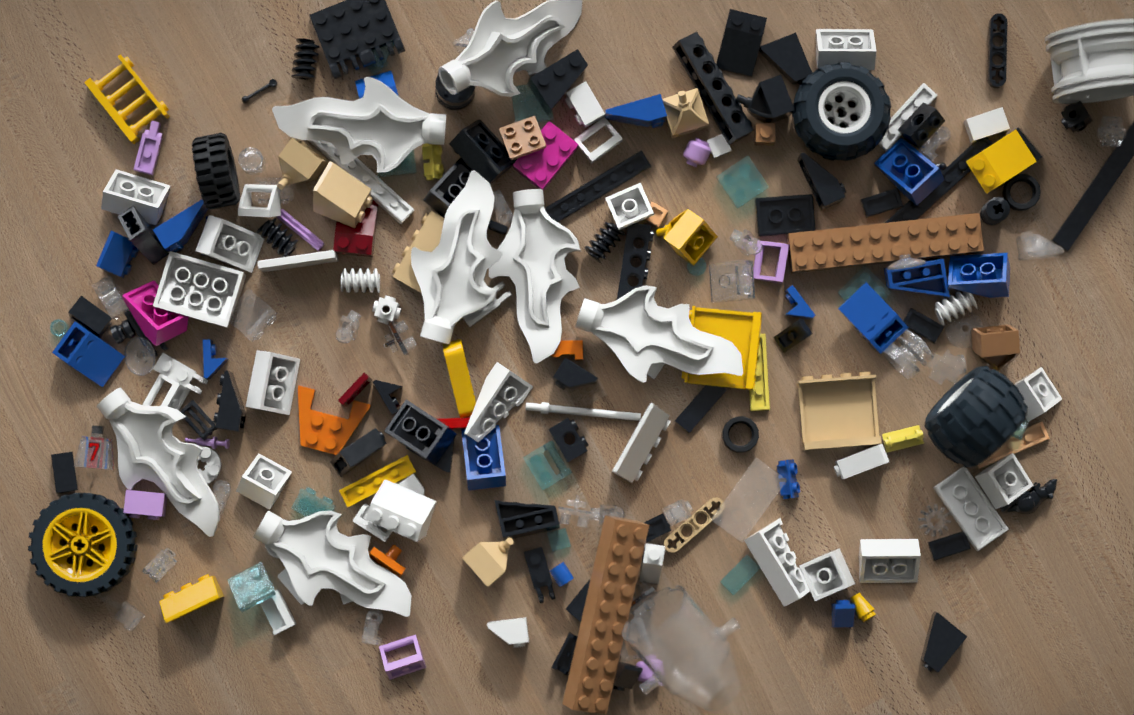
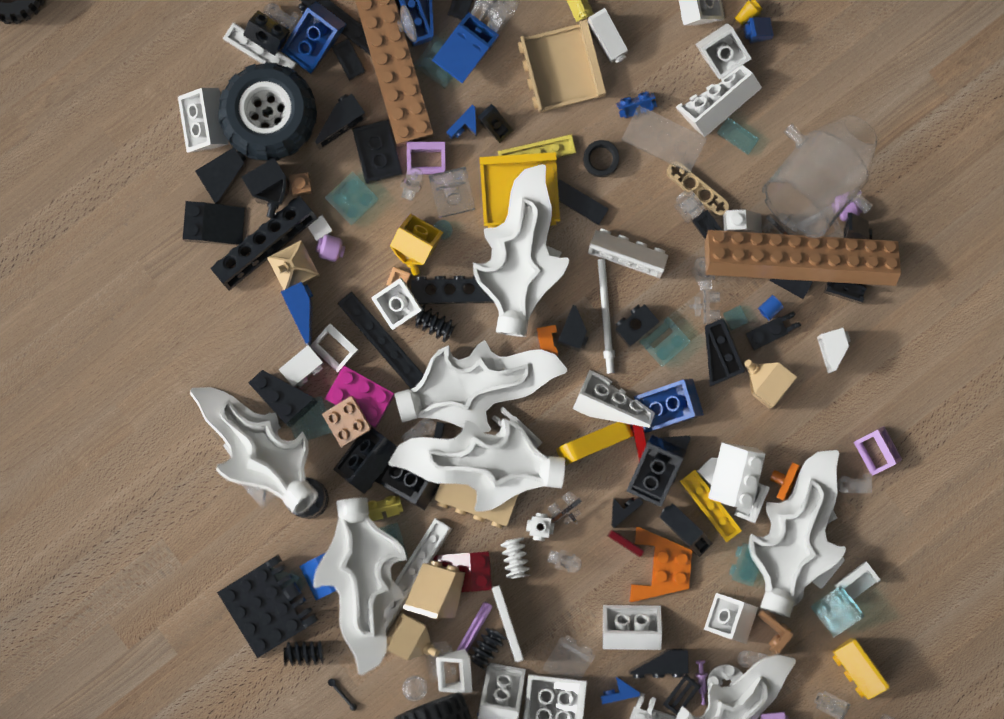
camera: 95 degrees left, 0 degrees up
(232, 522) = (778, 641): none -> medium nougat bracket

